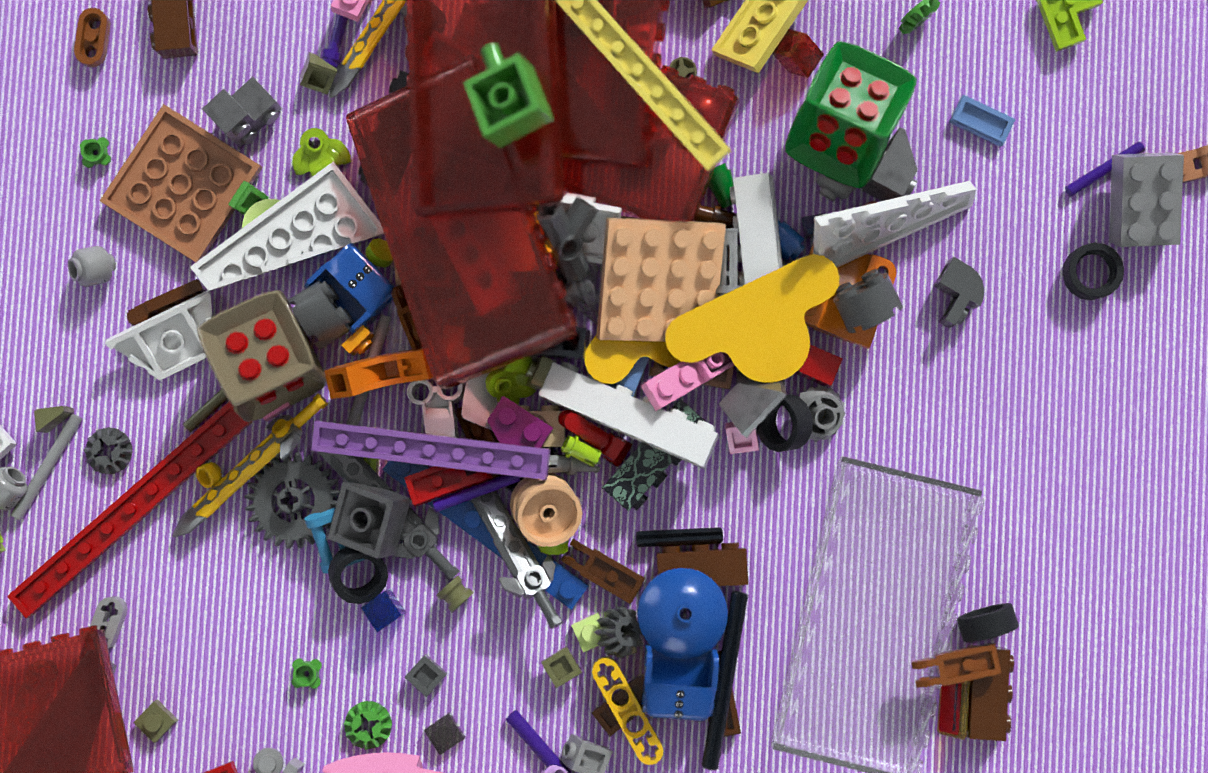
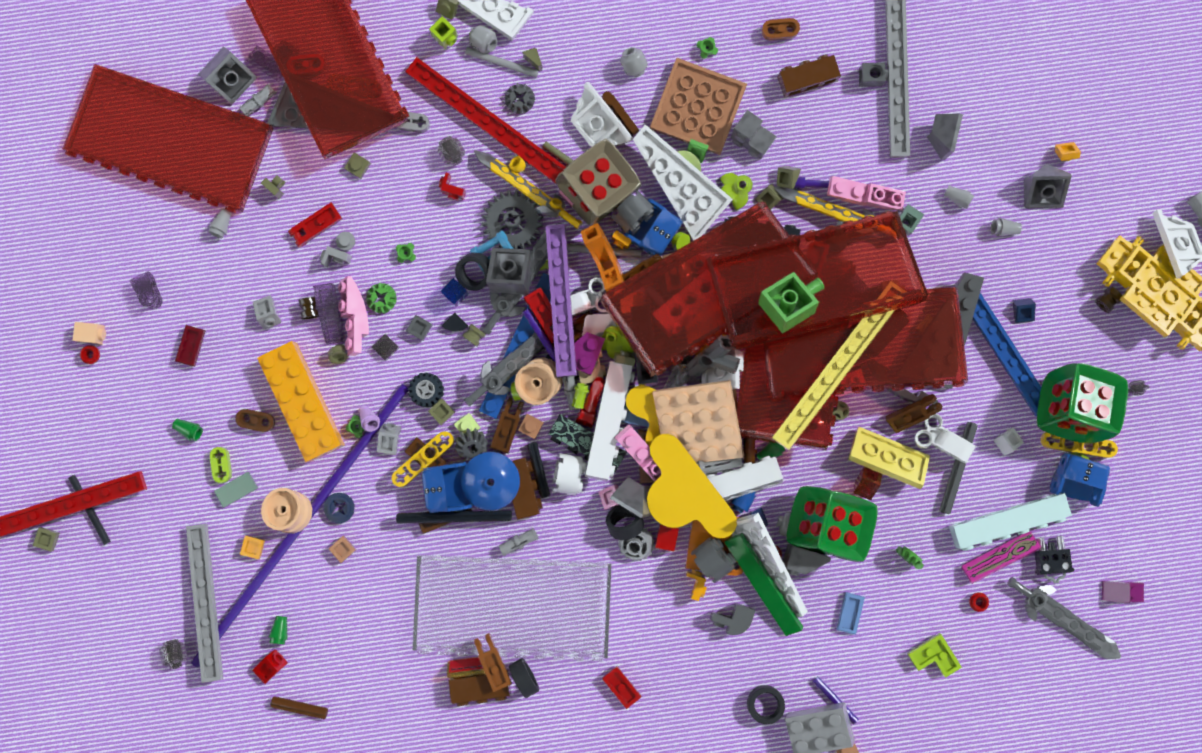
camera: 75 degrees right, 0 degrees up
(164, 571) = (451, 151): none -> clear smoke head
(229, 581) = (453, 192): none -> red bracket
(340, 106) = (769, 196): none -> olive slope
(431, 619) = (455, 324): none -> black tile
(516, 692) = (420, 386): none -> black wheel
(611, 535) = (530, 426): none -> nougat plate
(695, 492) = (568, 474): none -> white brick
(781, 589) = (518, 542): none -> light grey pin
(903, 333) = (699, 588): none -> light orange bracket
(917, 236) = (763, 584): none -> green tile
(1027, 479) = (621, 687): none -> red plate

